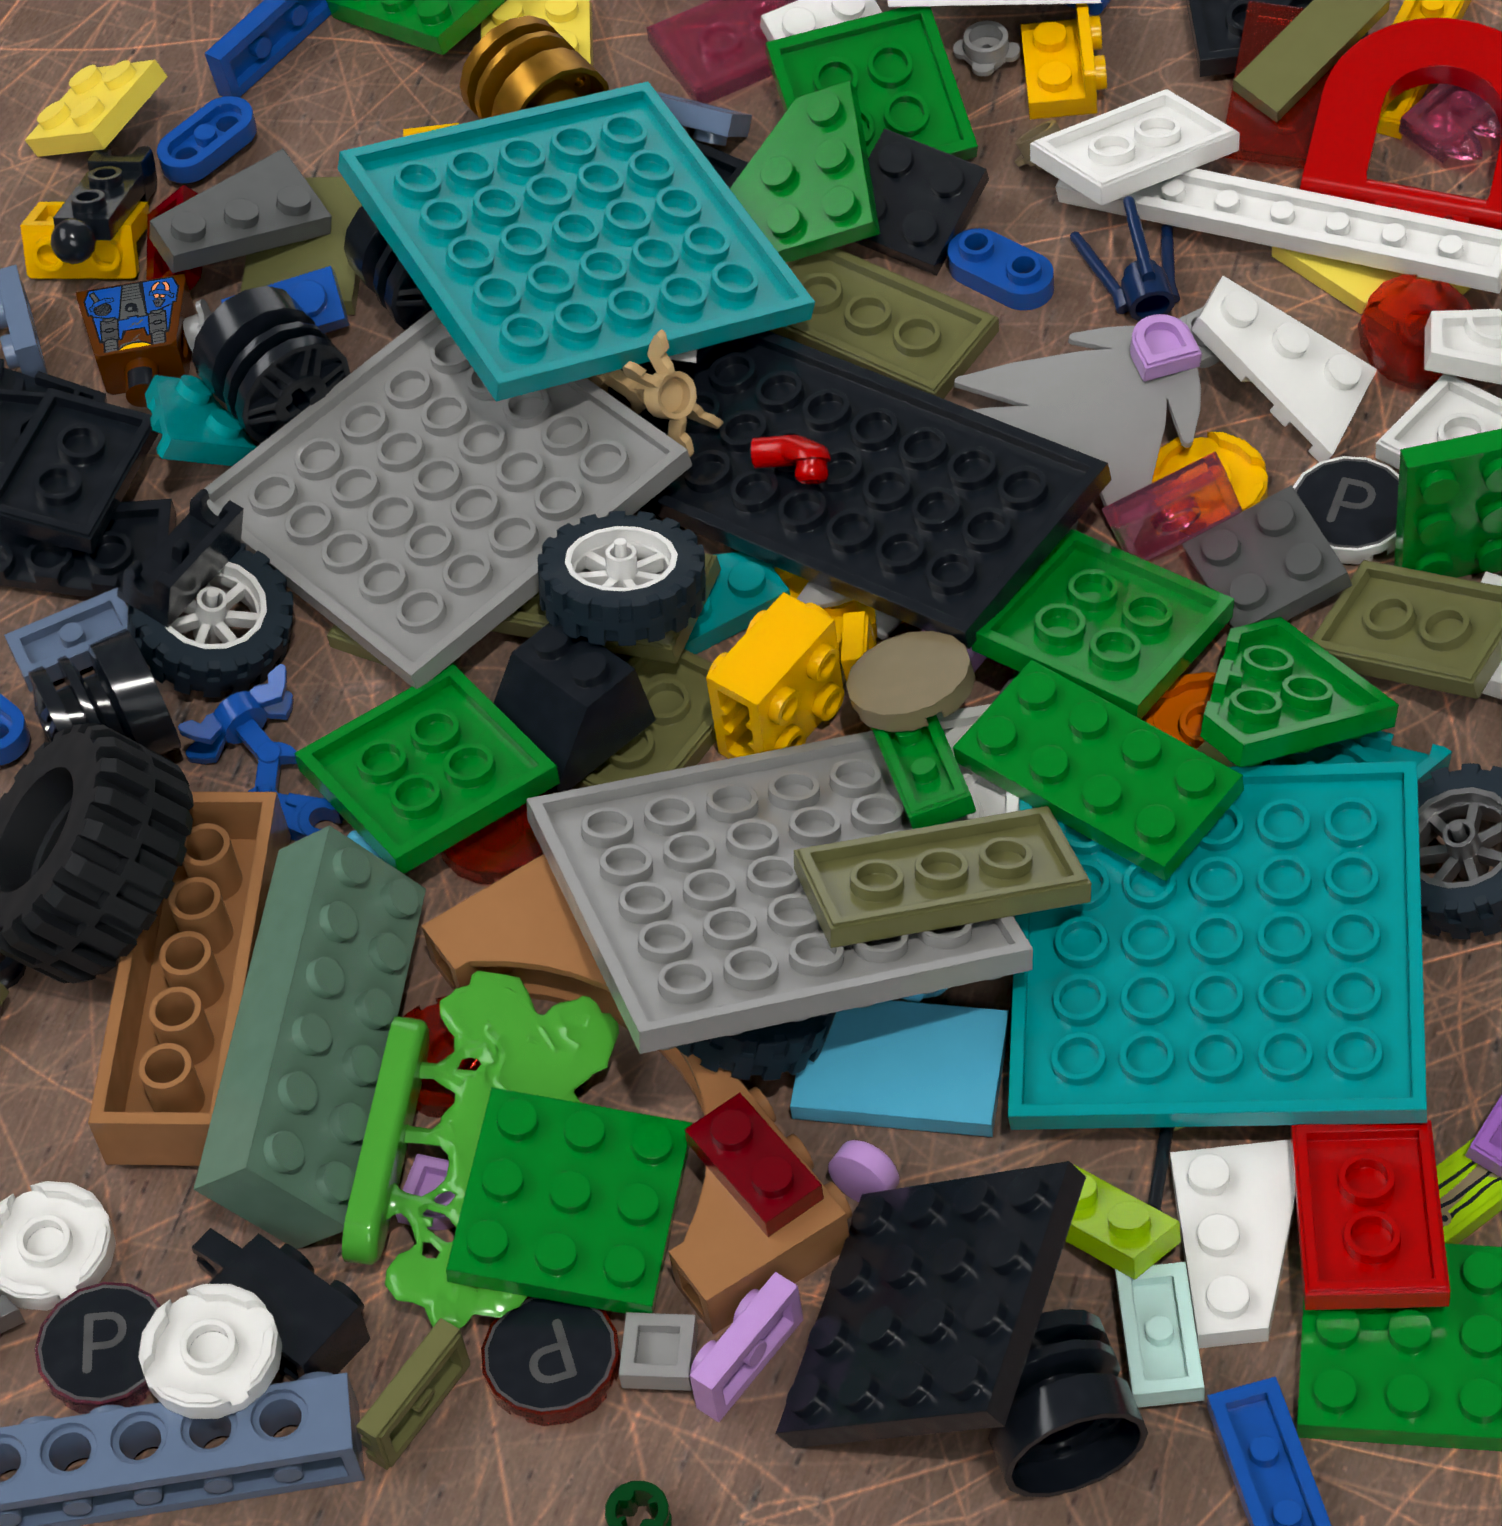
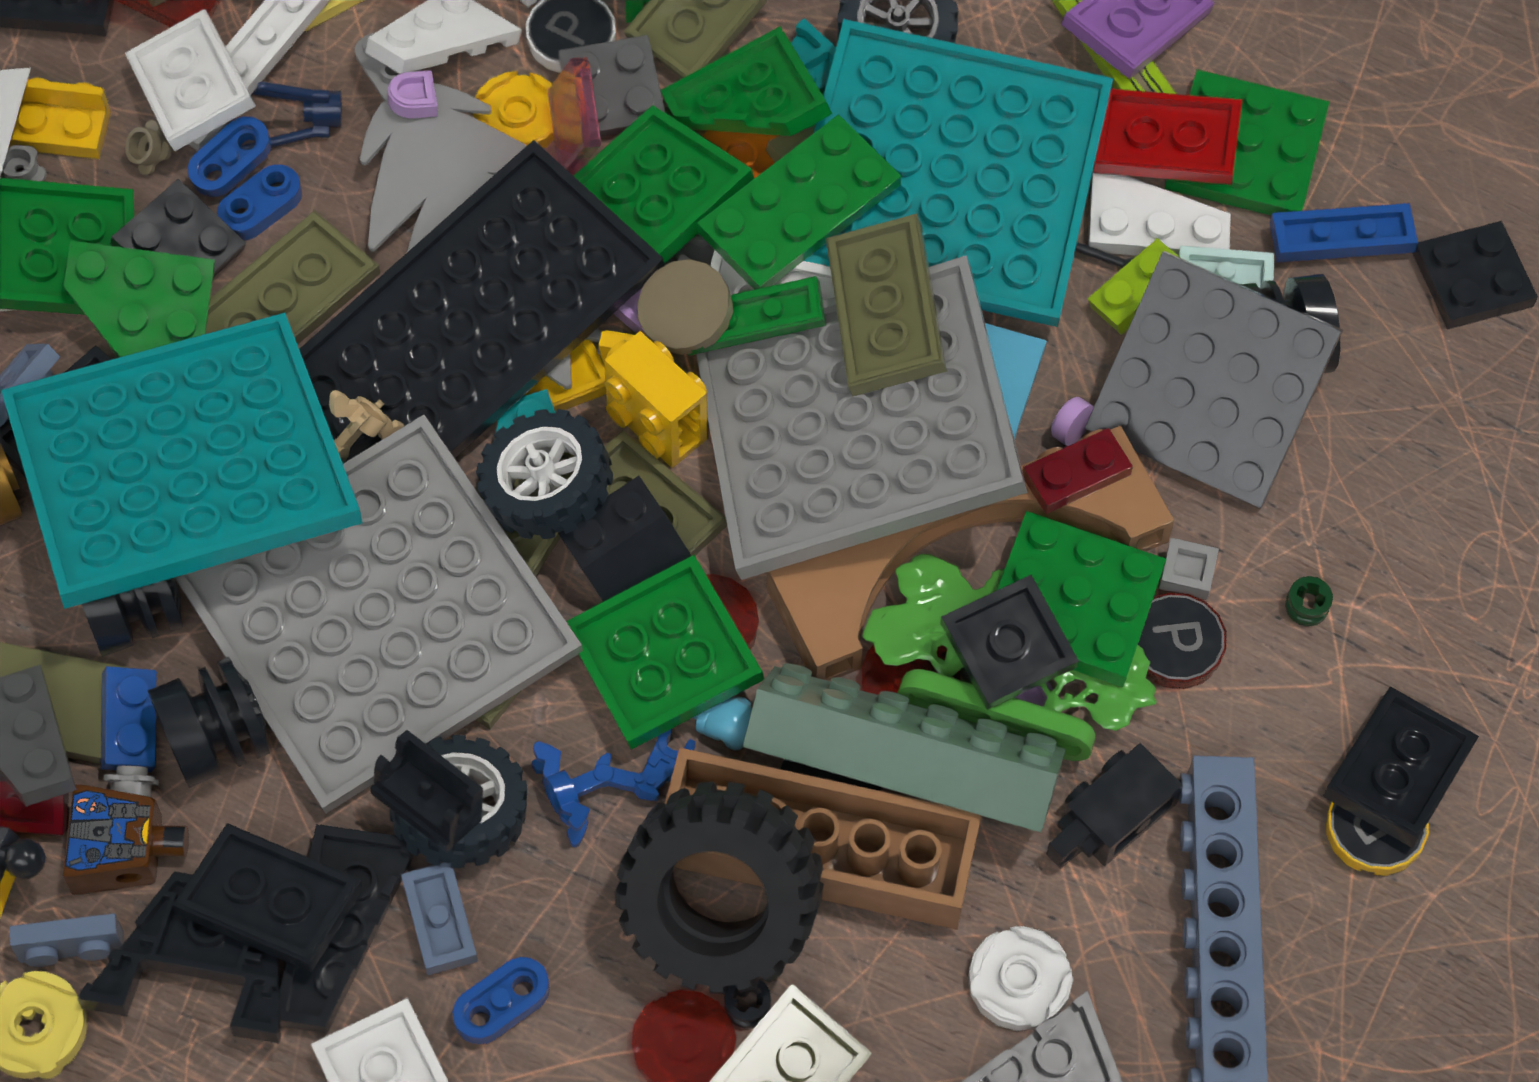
camera: 90 degrees left, 10 degrees up
(93, 1345) = (1118, 939): black tile -> none
(116, 695) = (546, 880): black wheel -> none
(194, 423) = (233, 798): teal wing -> none
(210, 1351) = (1167, 841): white tile -> none
(414, 1394) = (1198, 722): olive tile -> none
(454, 1103) = (1009, 642): none -> black plate
(757, 1332) = (1198, 512): lavender plate -> none
(792, 450) = (443, 342): red arm -> none
(1053, 220) = (225, 155): none -> blue plate

